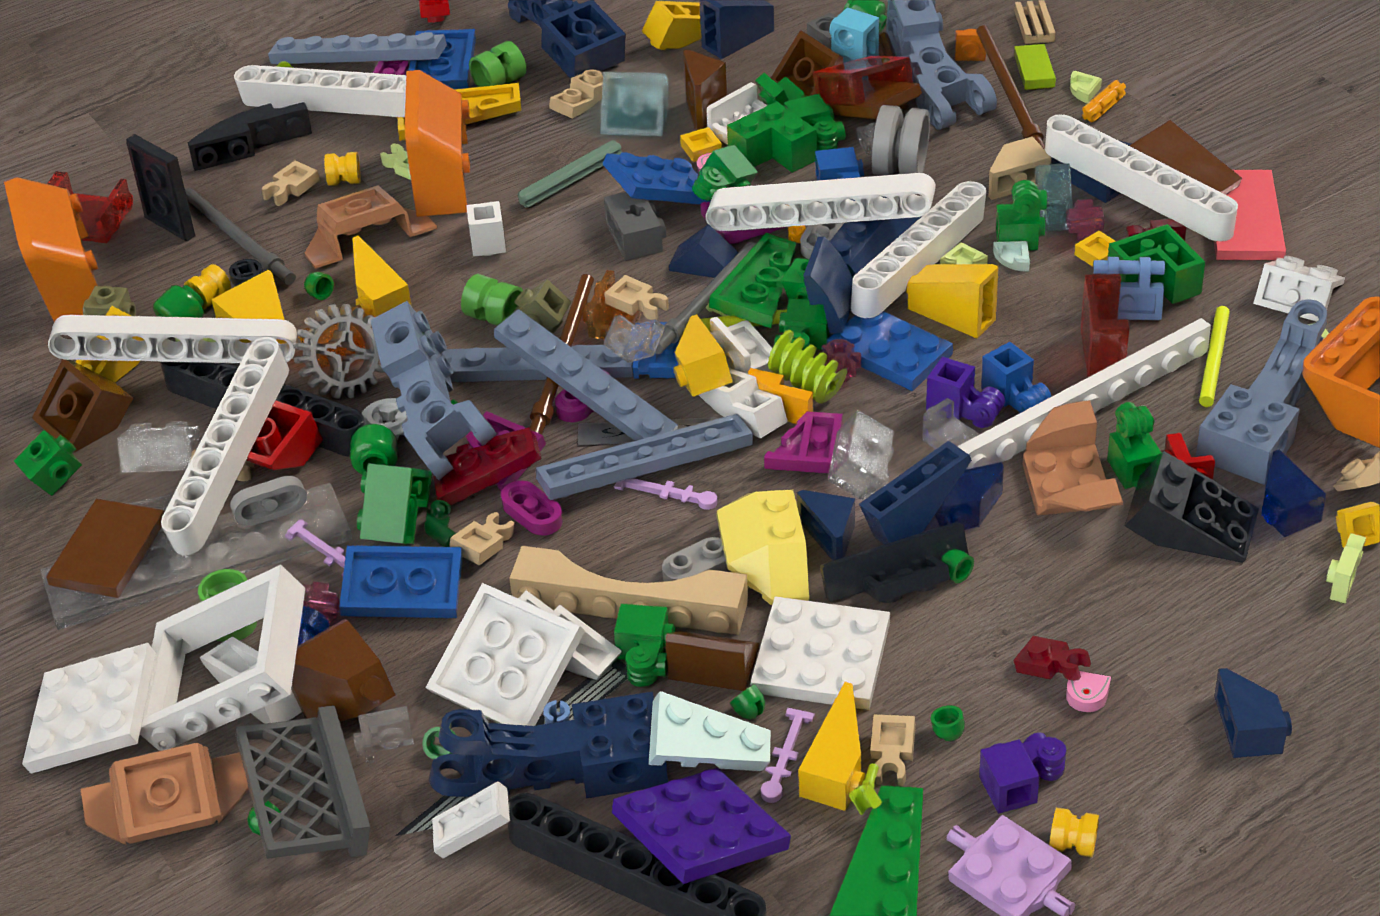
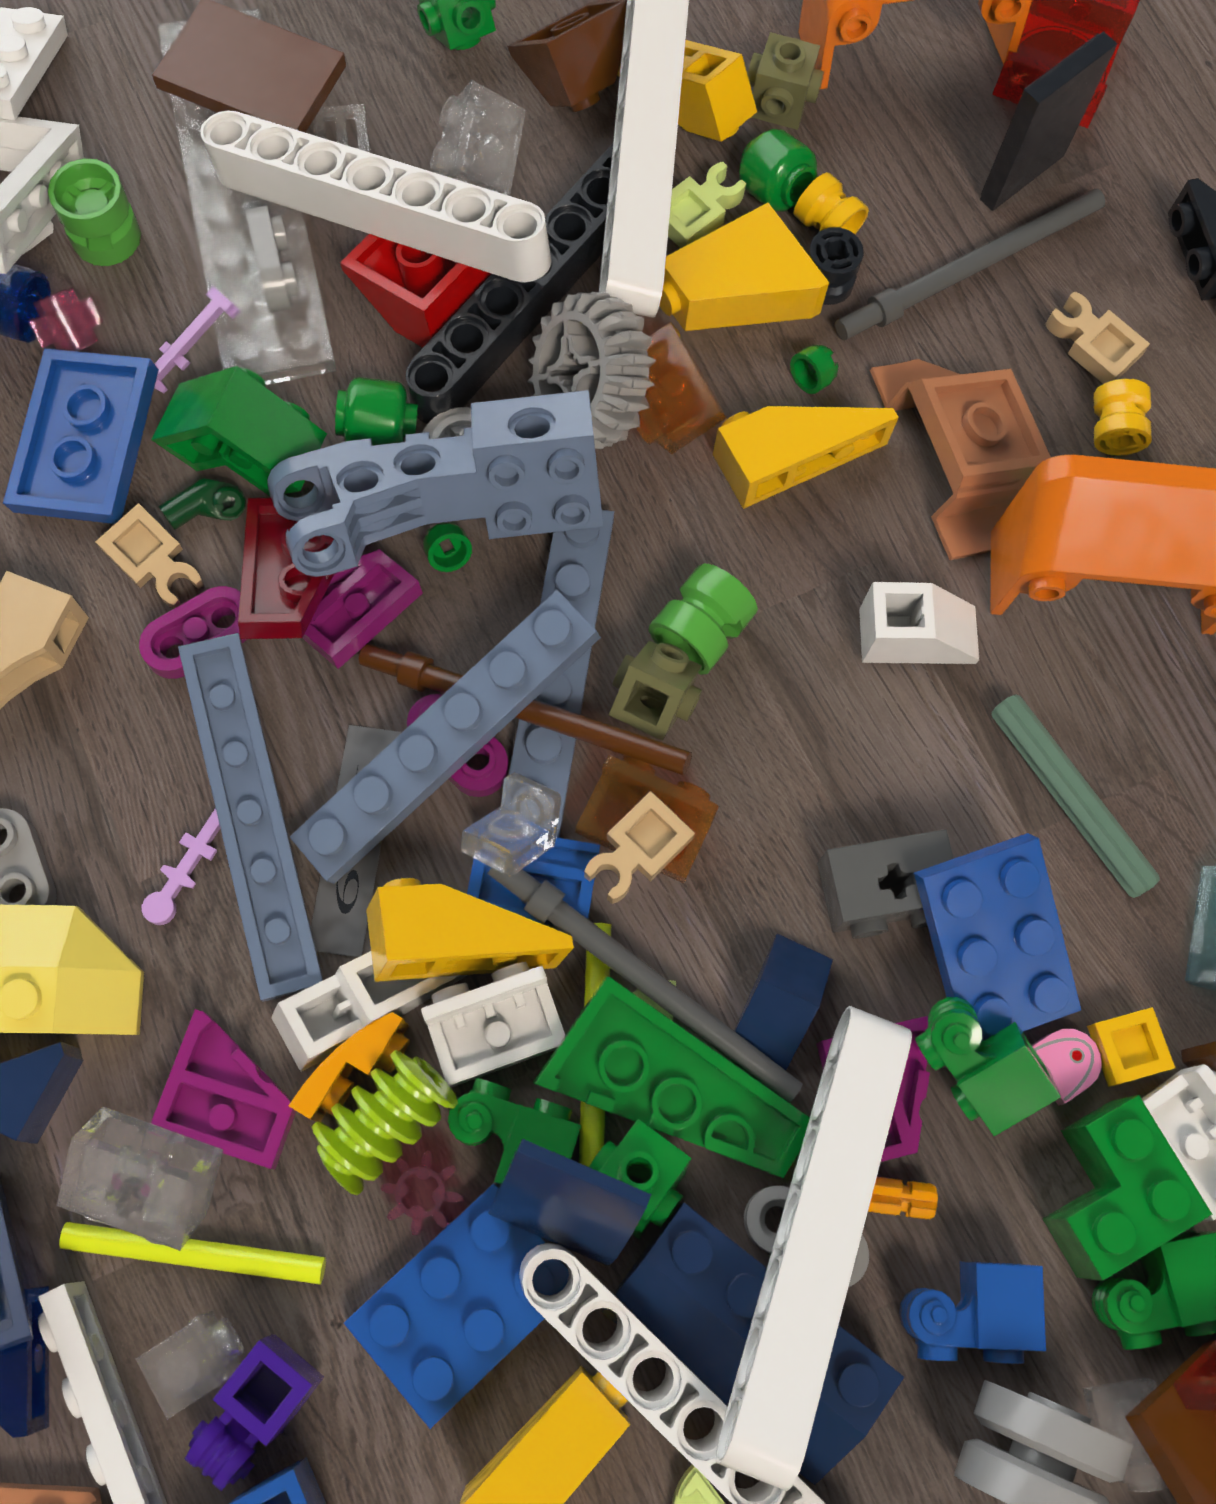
camera: 90 degrees right, 30 degrees up
(892, 422) = (194, 1254): none -> neon yellow bar

